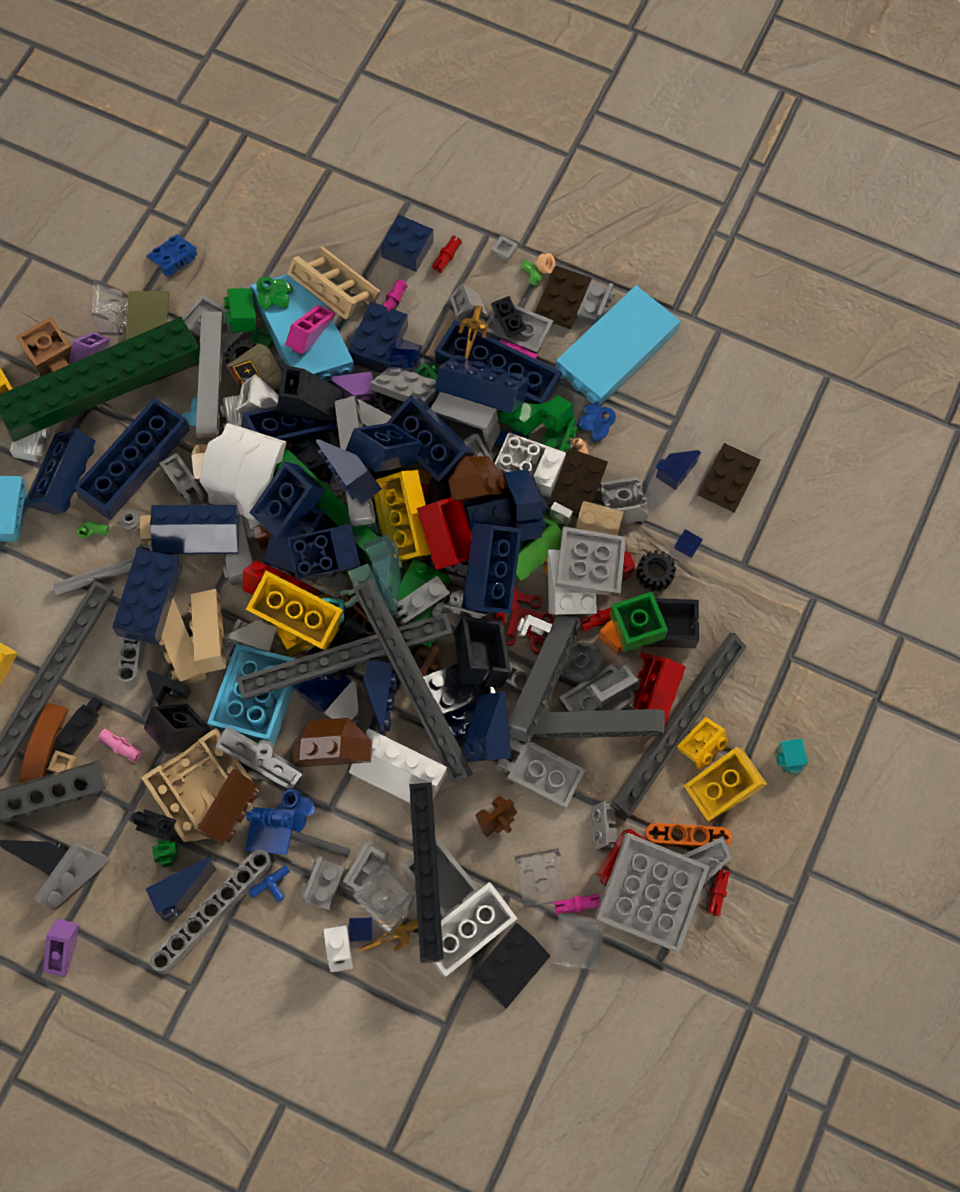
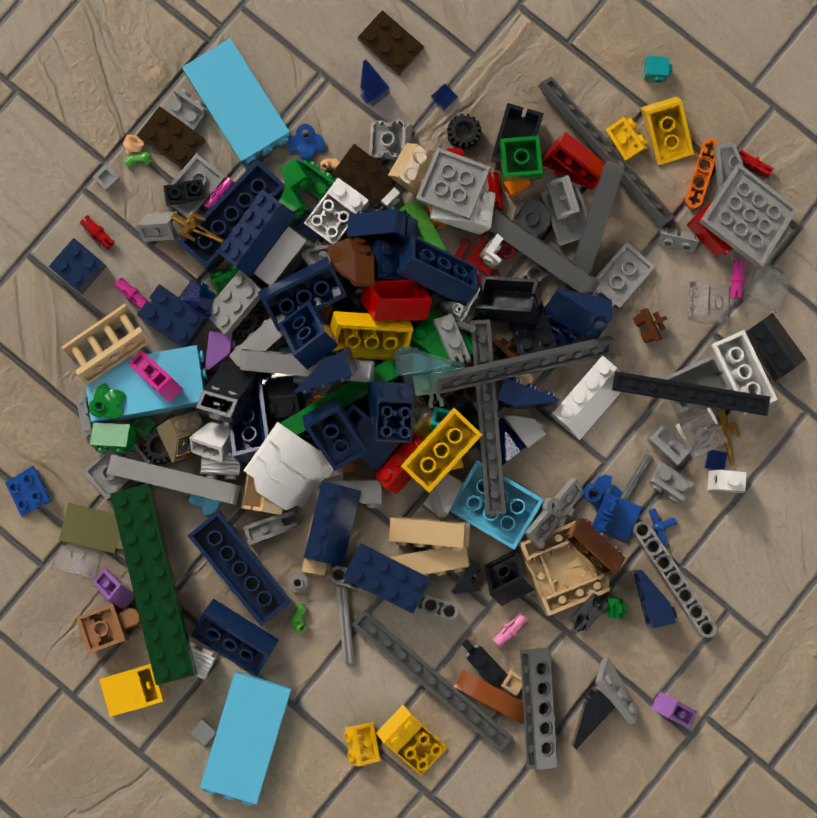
camera: 75 degrees left, 15 degrees up
(331, 743) = (558, 449): reddish brown wedge -> none

